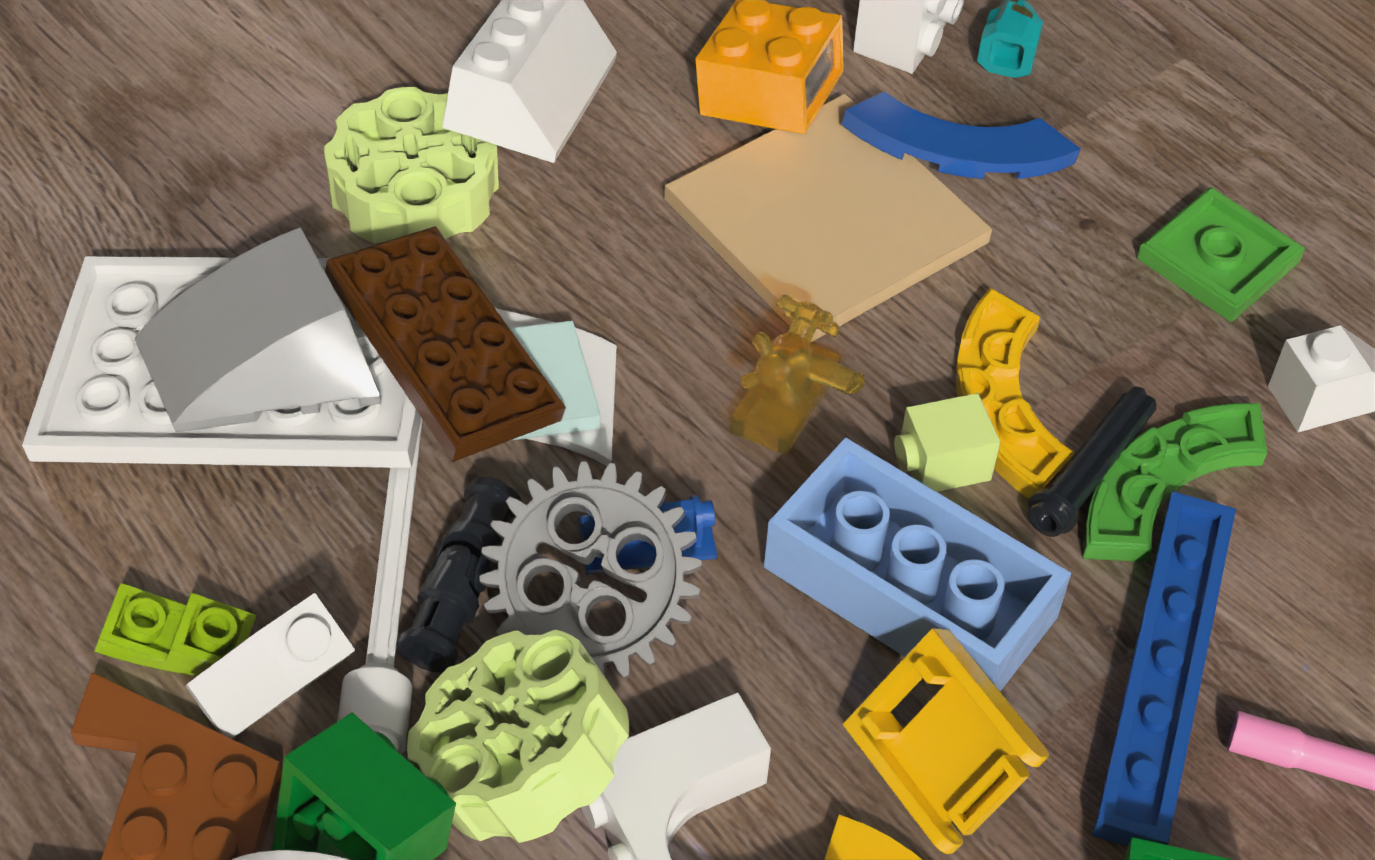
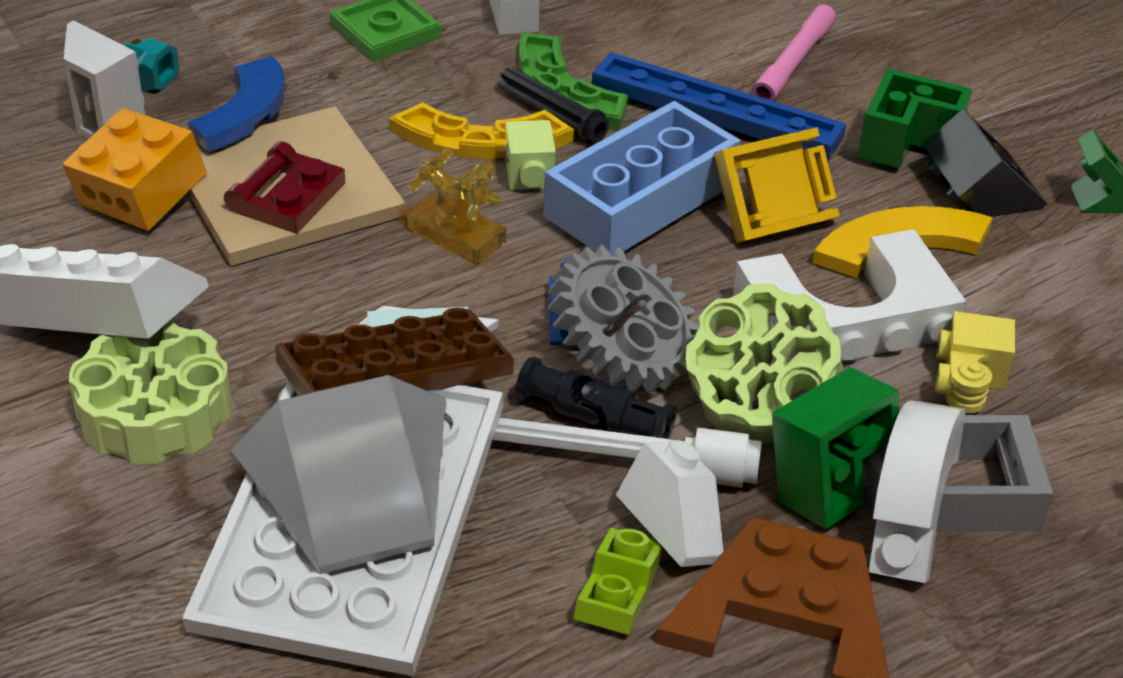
camera: 80 degrees left, 10 degrees down
(783, 220) = (295, 197): none -> dark red plate

